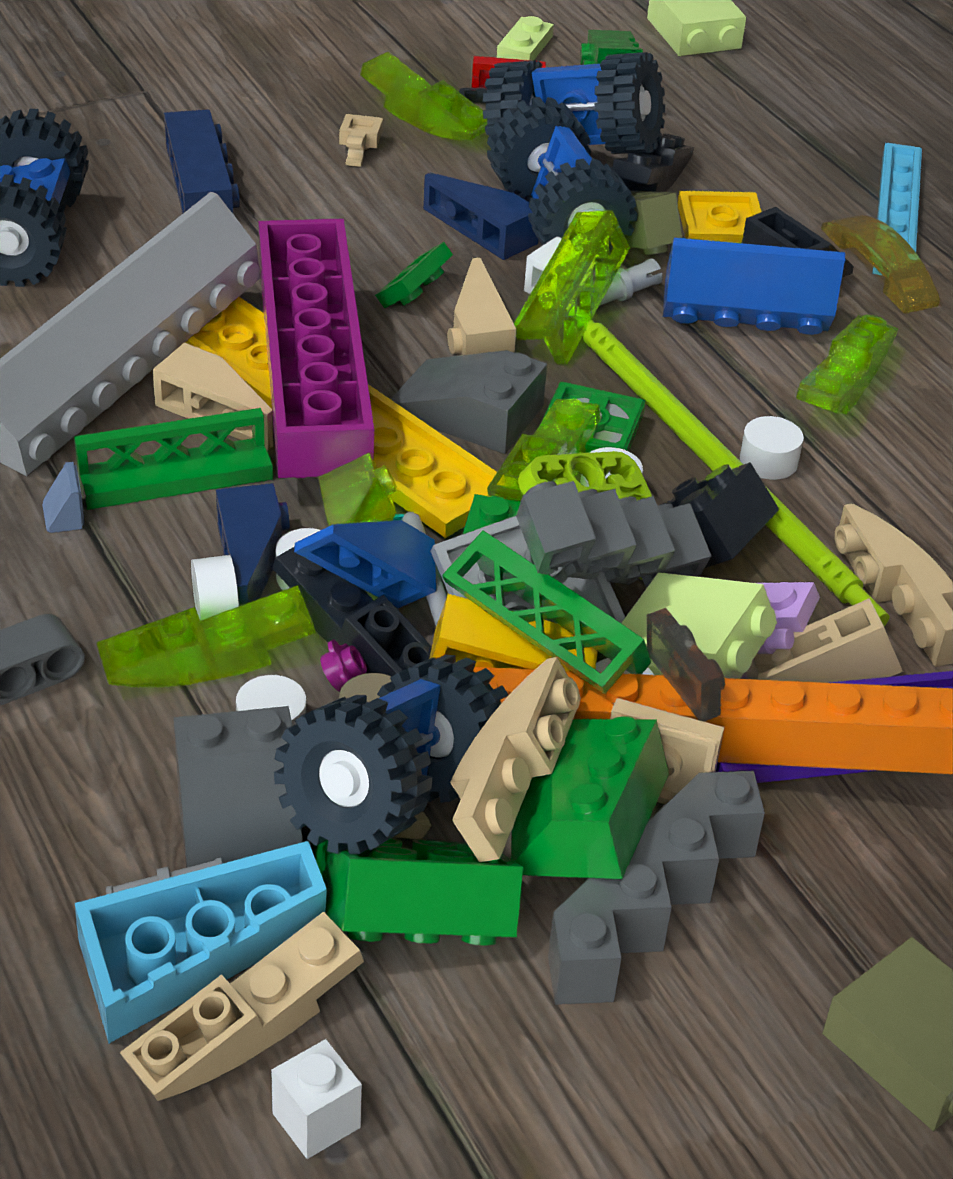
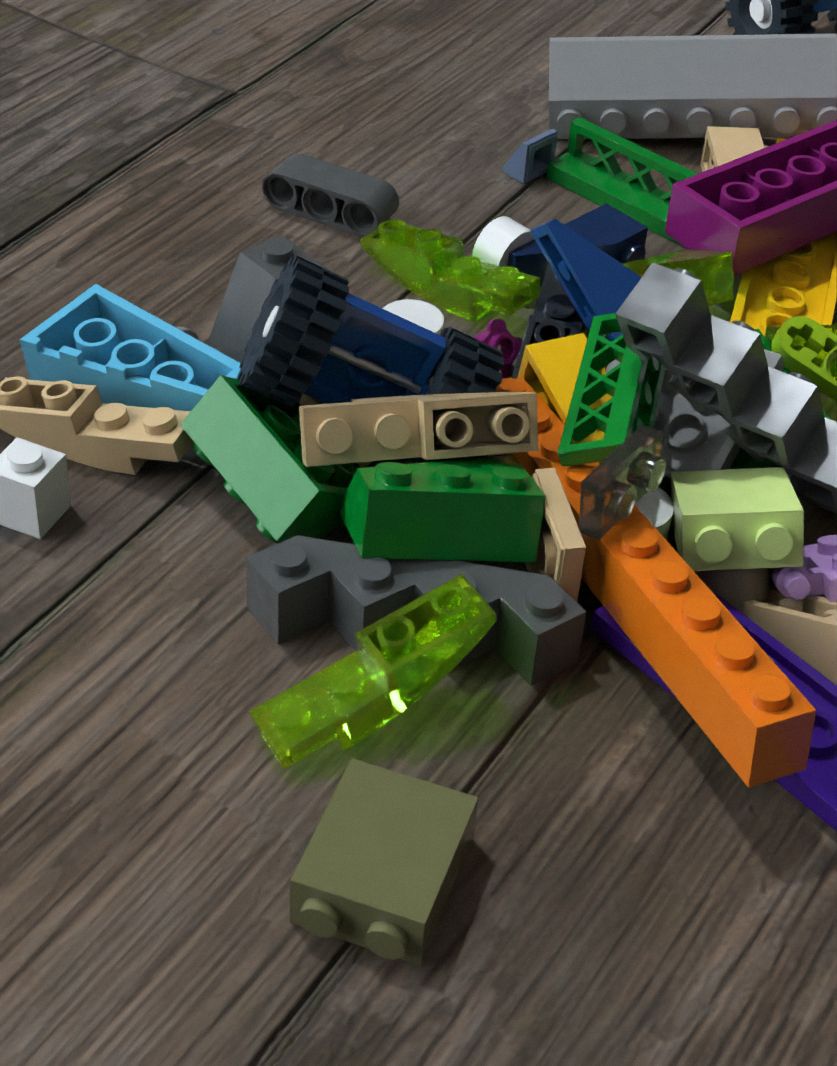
camera: 60 degrees right, 0 degrees up
(737, 940) = (388, 673): none -> clear neon green slope

